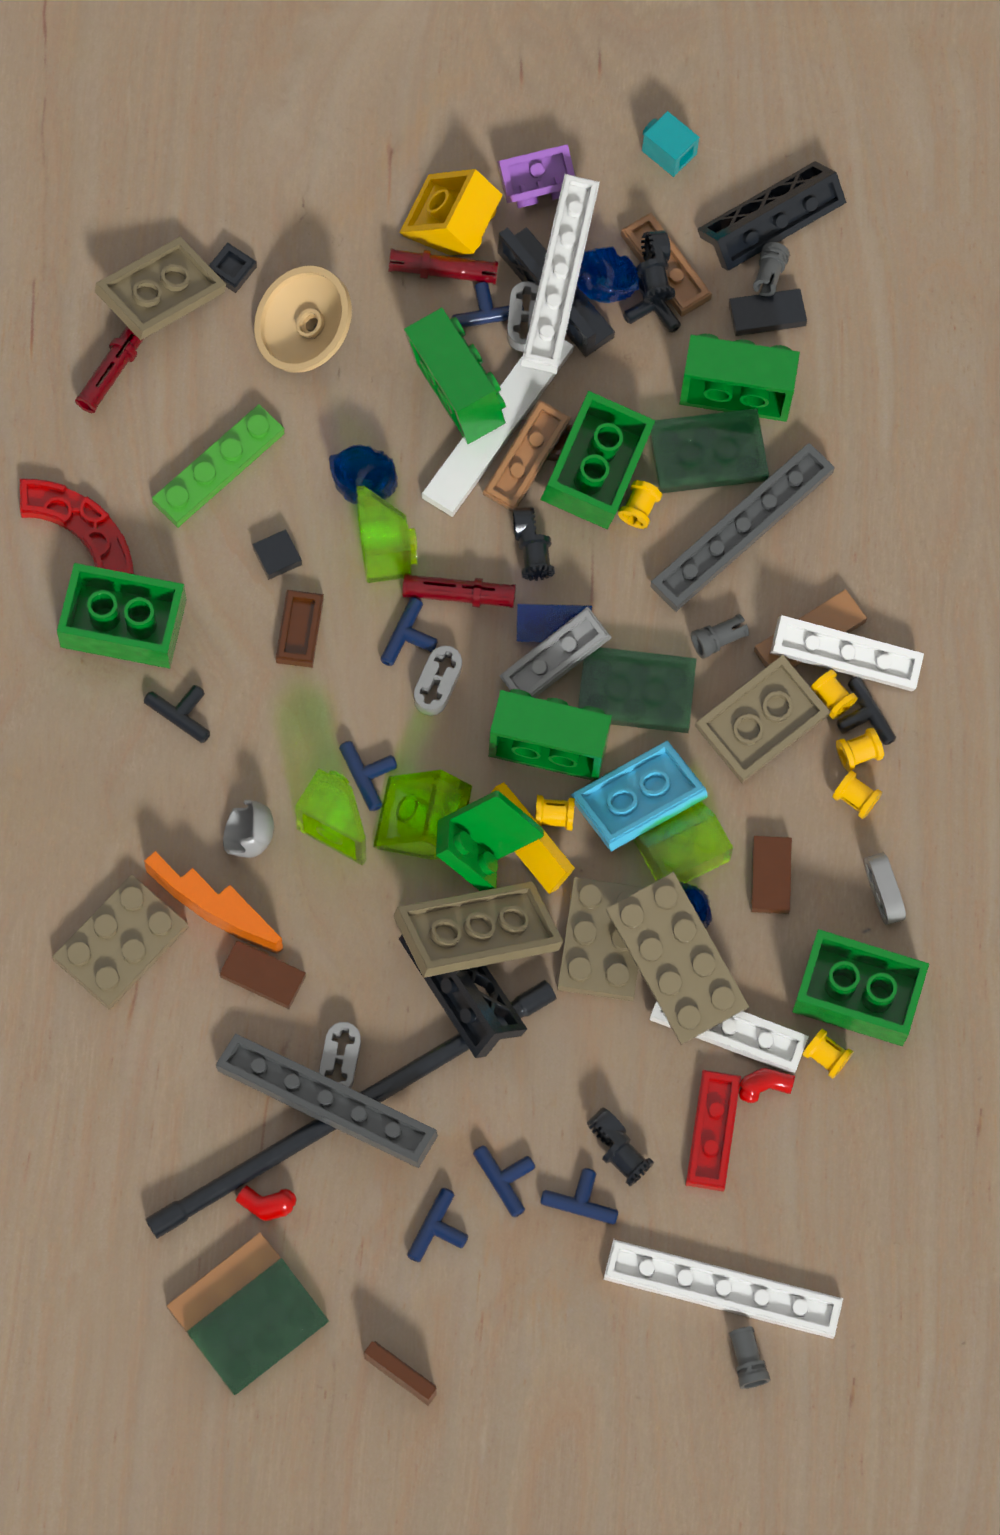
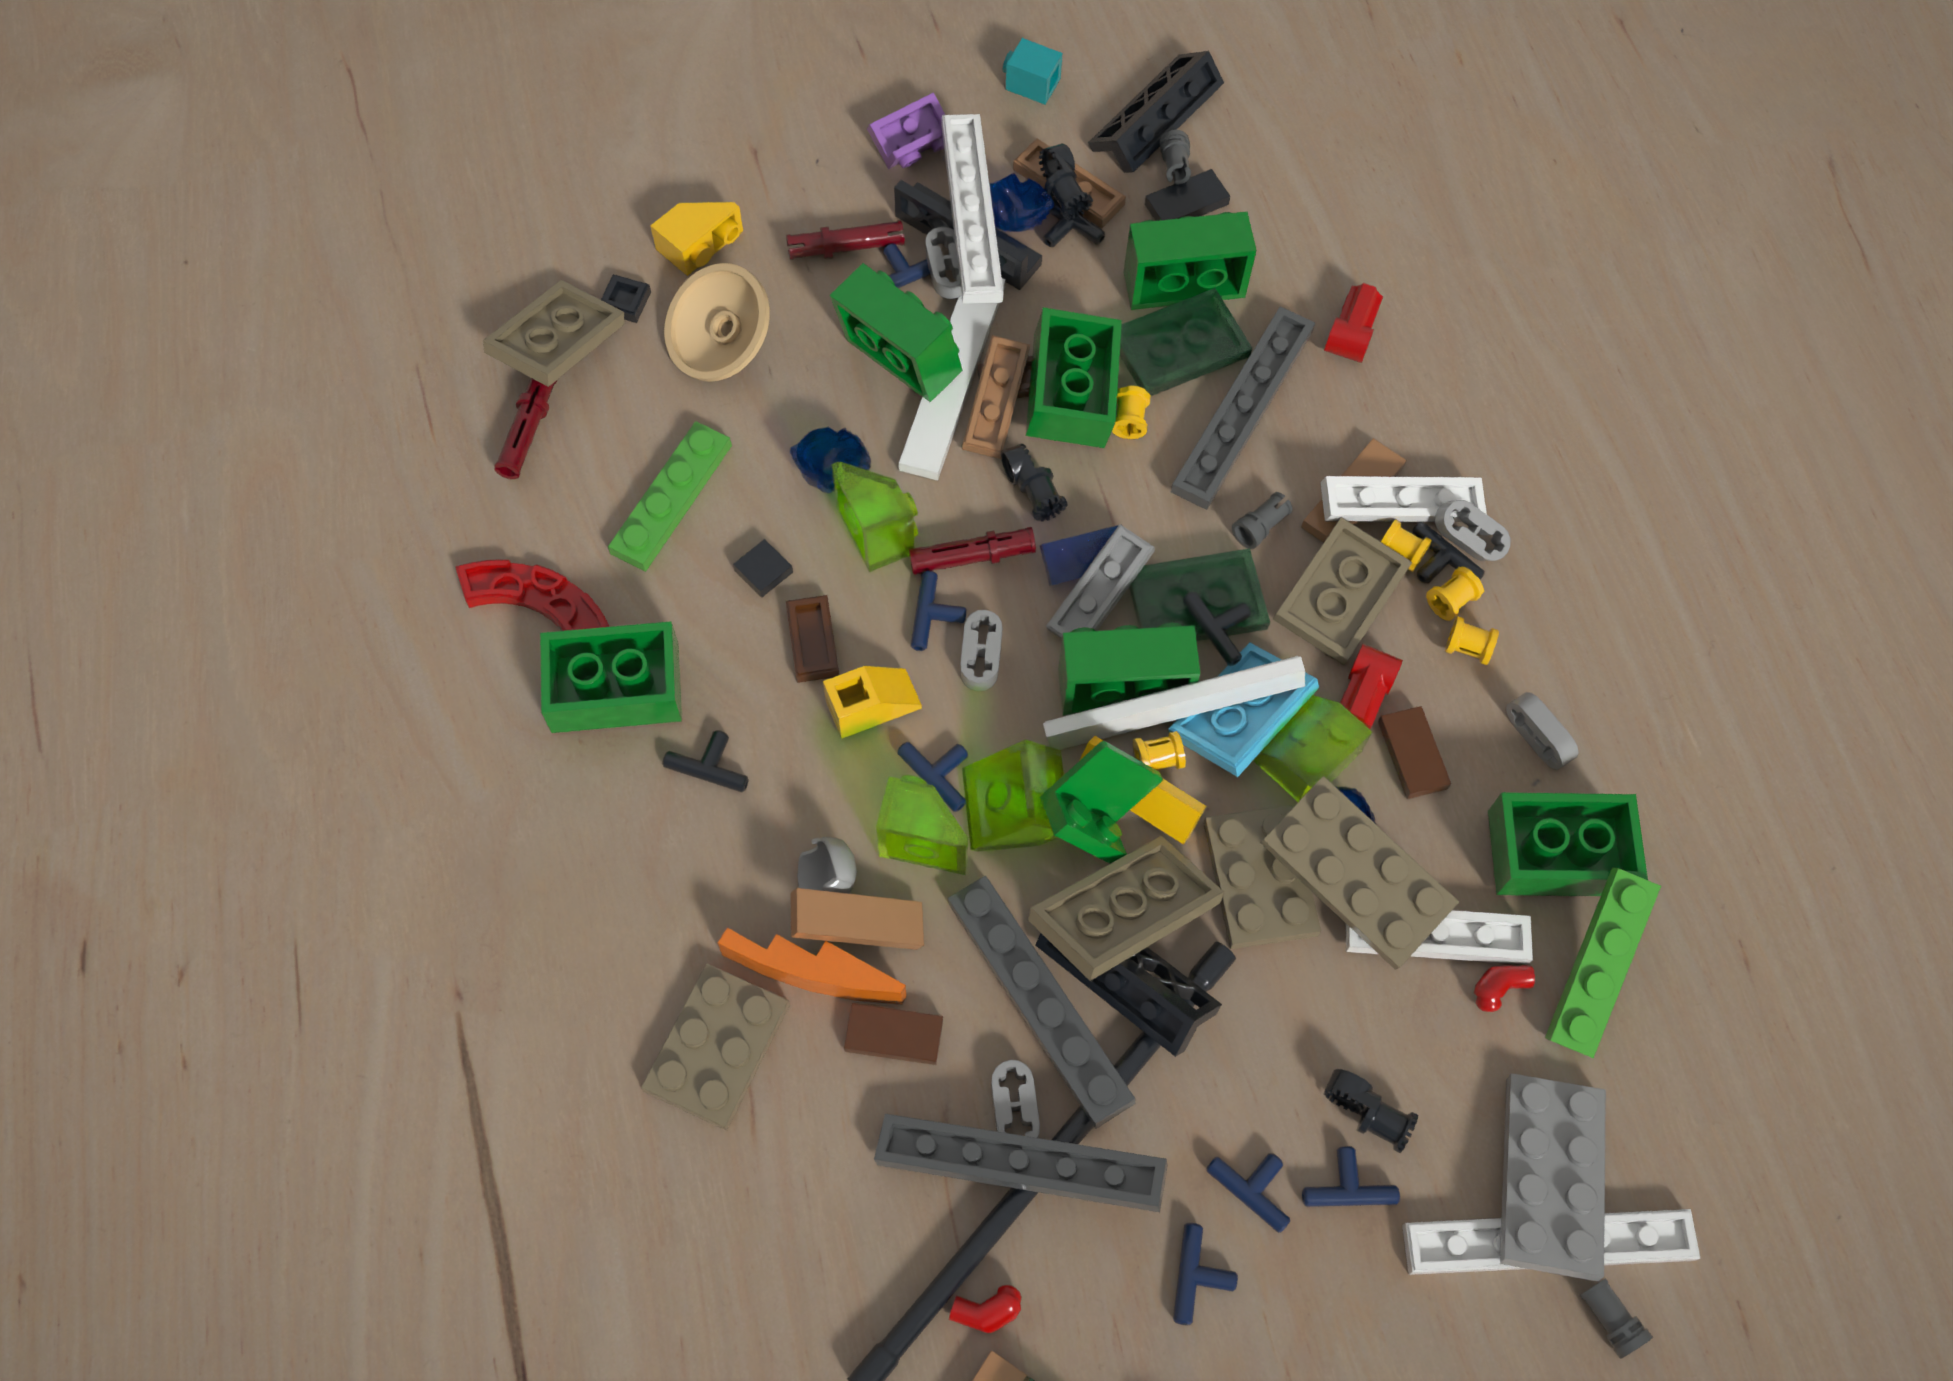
camera: 15 degrees left, 5 degrees down
(260, 875) = (856, 919): none -> medium nougat tile
(312, 222) = (695, 232): none -> yellow slope
(330, 695) = (869, 698): none -> yellow slope
(386, 983) = (1042, 1002): none -> dark grey plate
(452, 212) = (837, 185): yellow slope -> none
(579, 775) = (1176, 703): none -> white tile
(638, 718) = (1216, 626): none -> black piece
(713, 1130) = (1465, 1057): red tile -> none
(743, 1240) = (1554, 1178): none -> light grey plate
(757, 801) = (1369, 682): none -> red piece
(827, 1053) = (1558, 929): yellow bush -> none
(848, 1089) = (1603, 962): none -> bright green plate
(866, 485) = (1353, 328): none -> red piece
(903, 693) = (1478, 524): none -> light grey beam

